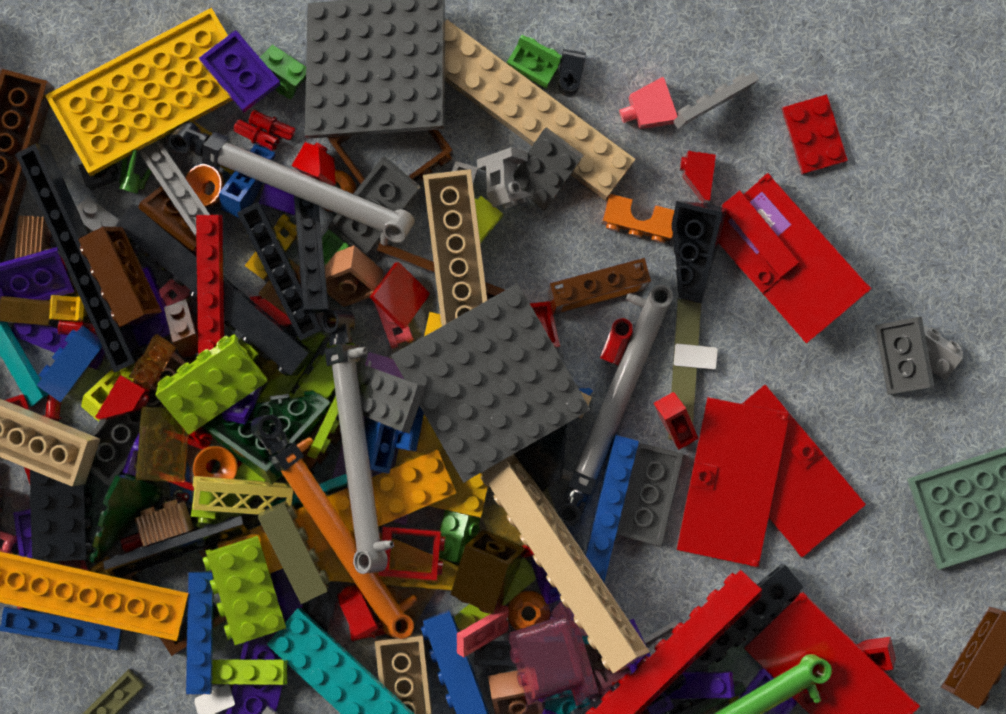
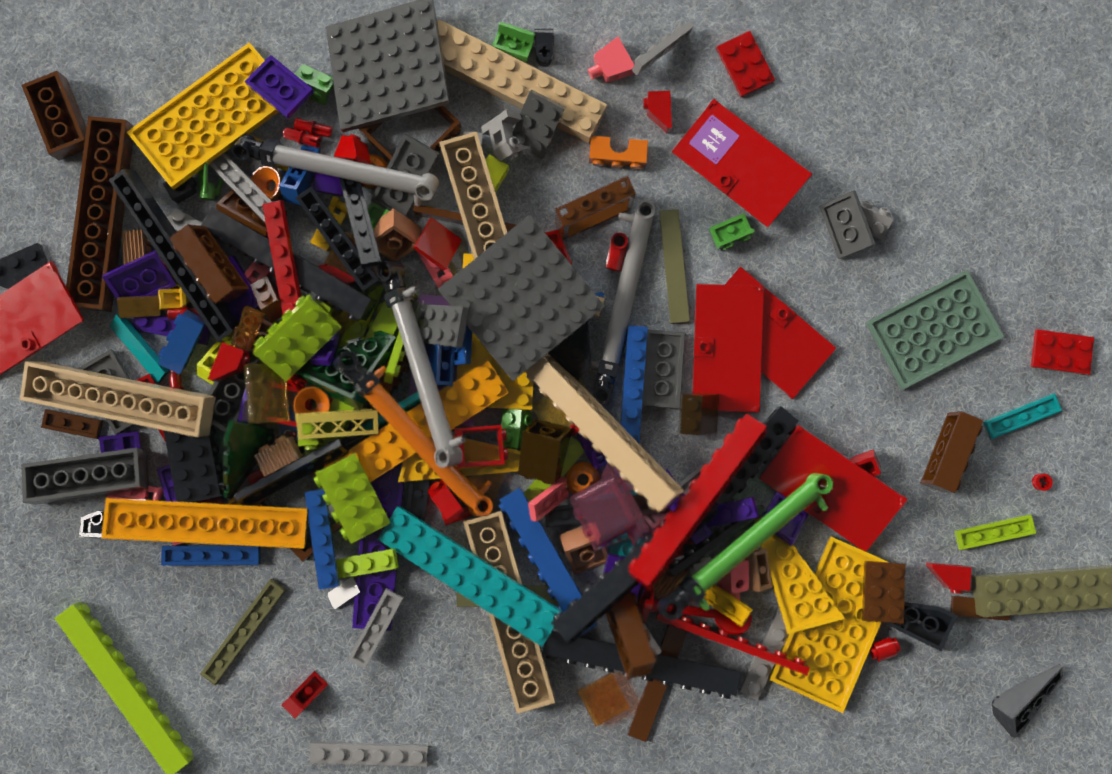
camera: 10 degrees left, 0 degrees up
(294, 552) = (386, 460): olive brick -> none
(676, 420) = (674, 306): red slope -> none
(682, 557) = (698, 413): none -> dark brown slope
(695, 356) = (681, 254): white sticker -> none
(696, 239) = (666, 162): black wedge -> none
(760, 234) = (716, 147): red tile -> none
(761, 339) = (731, 231): none -> bright green bracket

